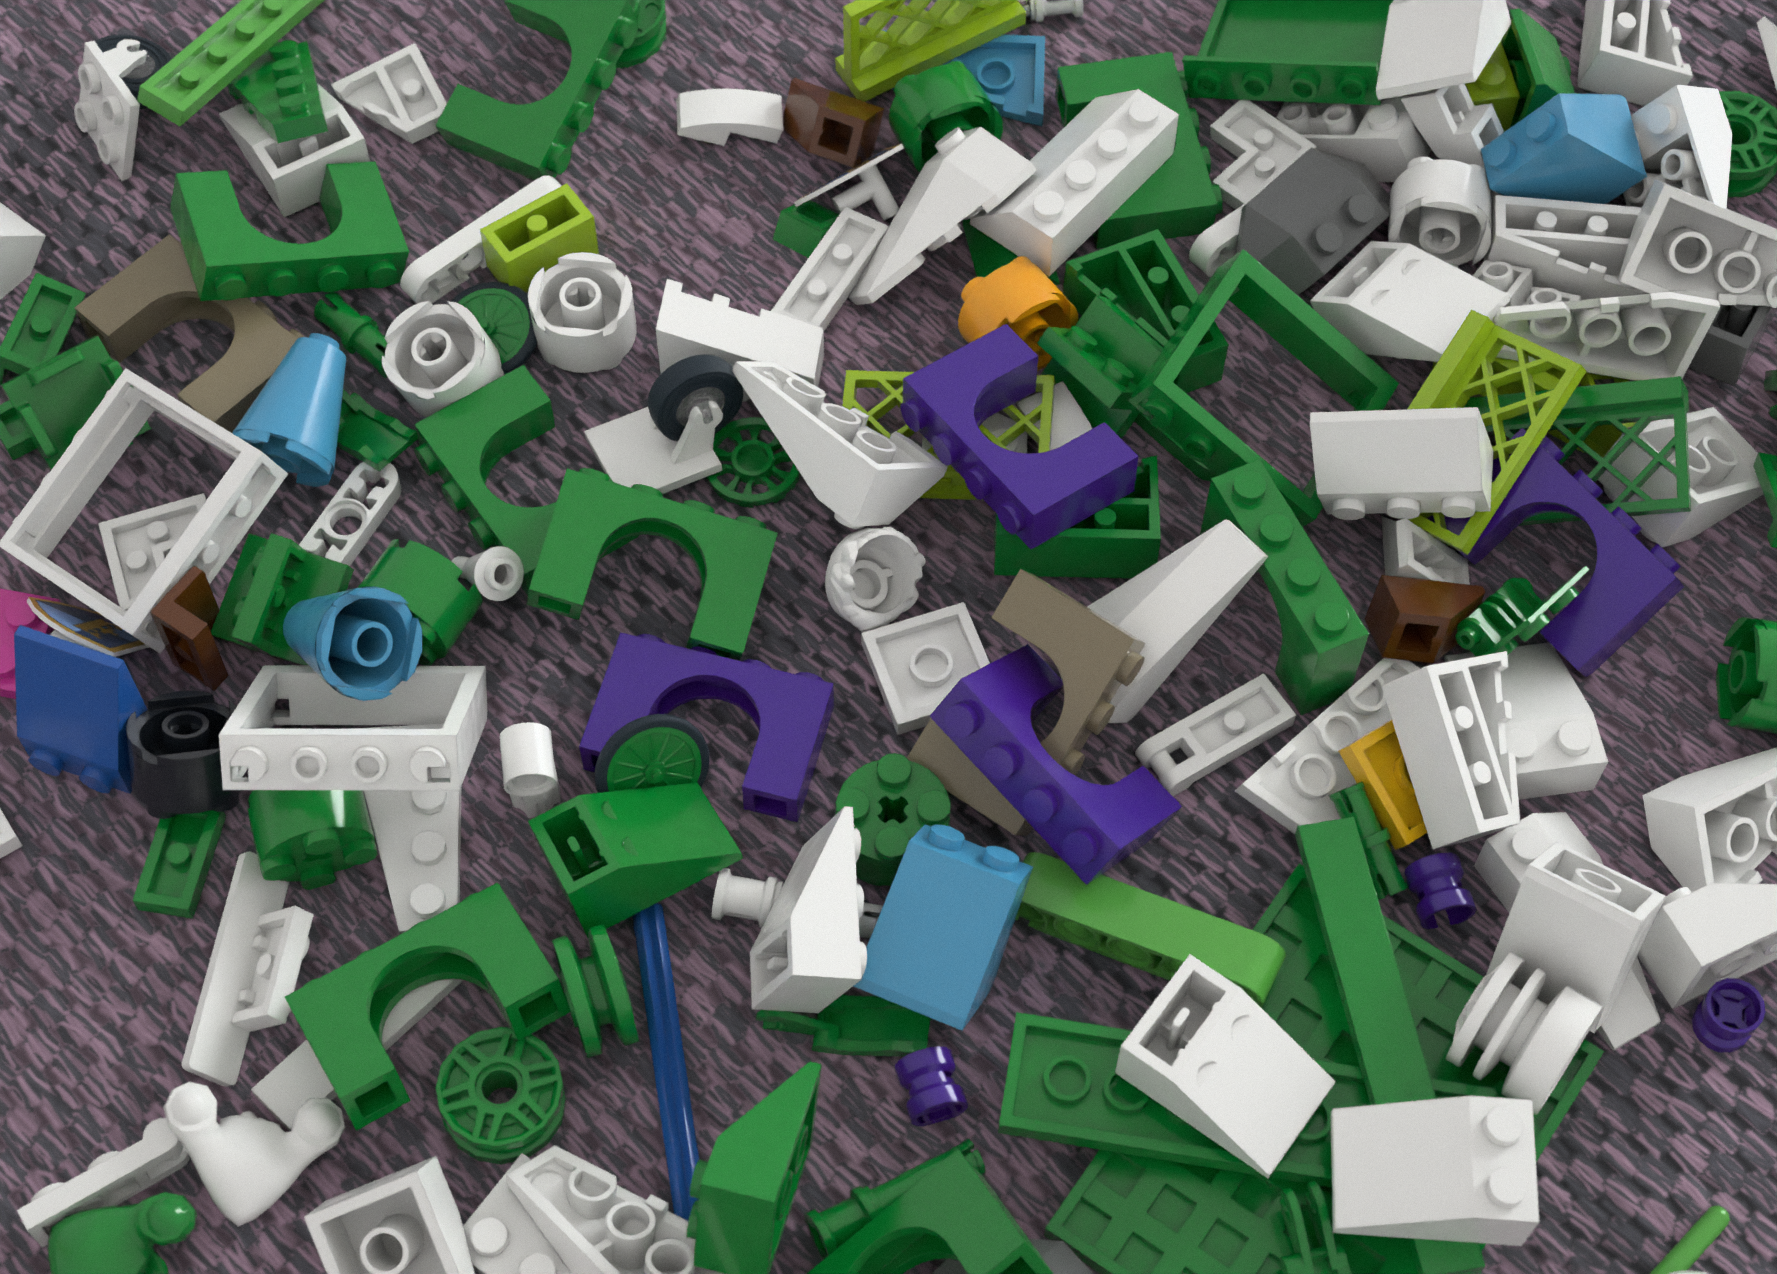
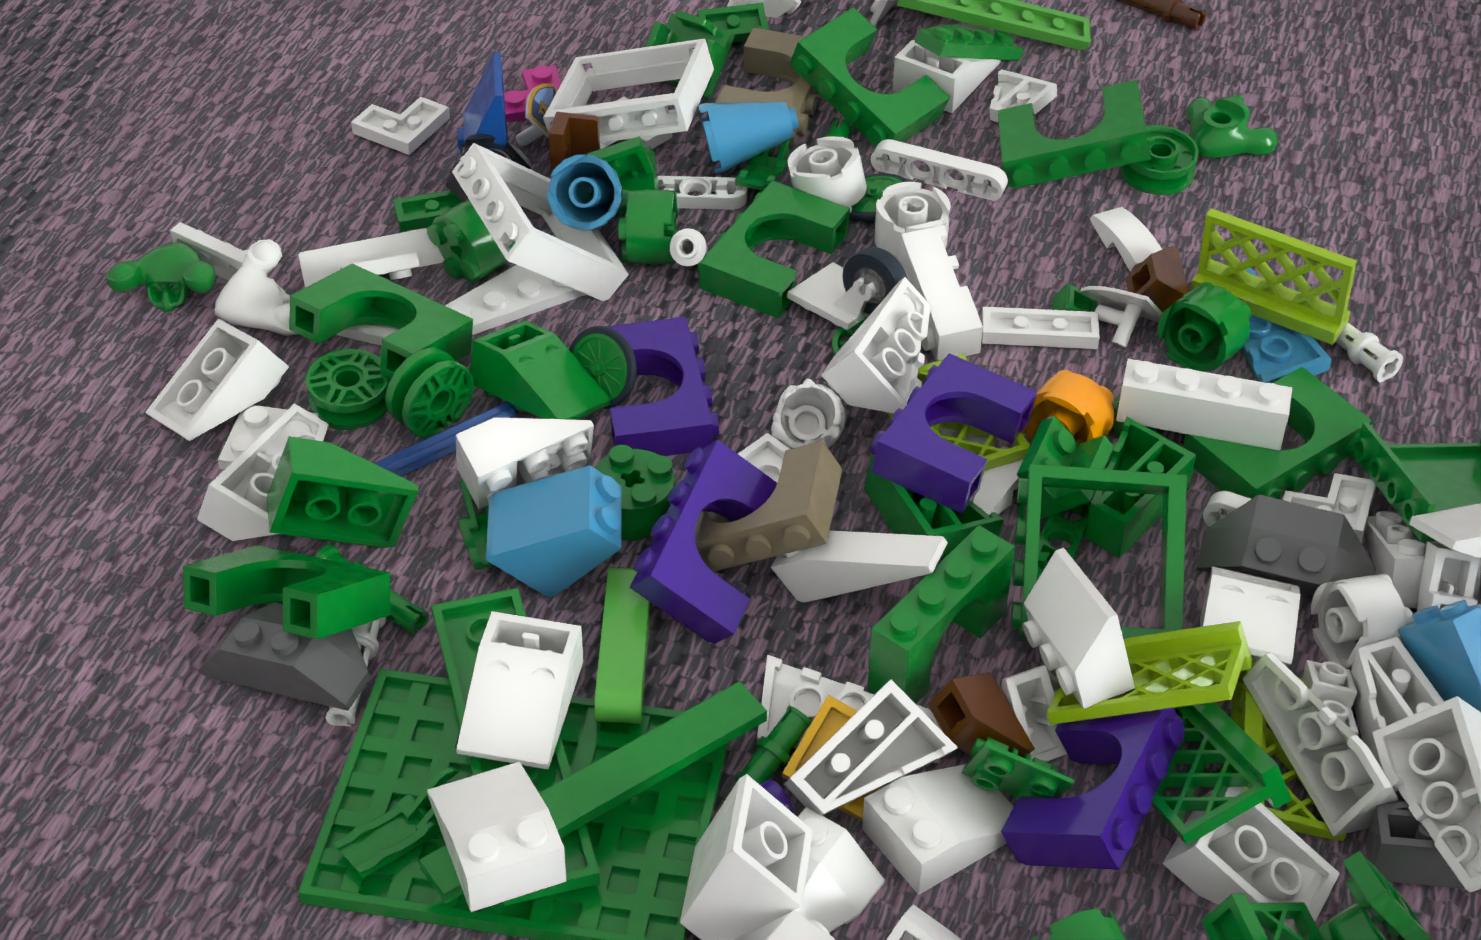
camera: 65 degrees right, 15 degrees down
(529, 768) = (562, 307): white piece -> none
(537, 236) = (962, 182): lime brick -> none
(598, 513) = (769, 347): green arch -> none
(931, 1086) = (456, 579): dark purple wheel -> none
(957, 183) = (1150, 340): white wedge -> none
(1217, 734) = (811, 644): white plate -> none
(1522, 1031) = (643, 862): white wheel -> none

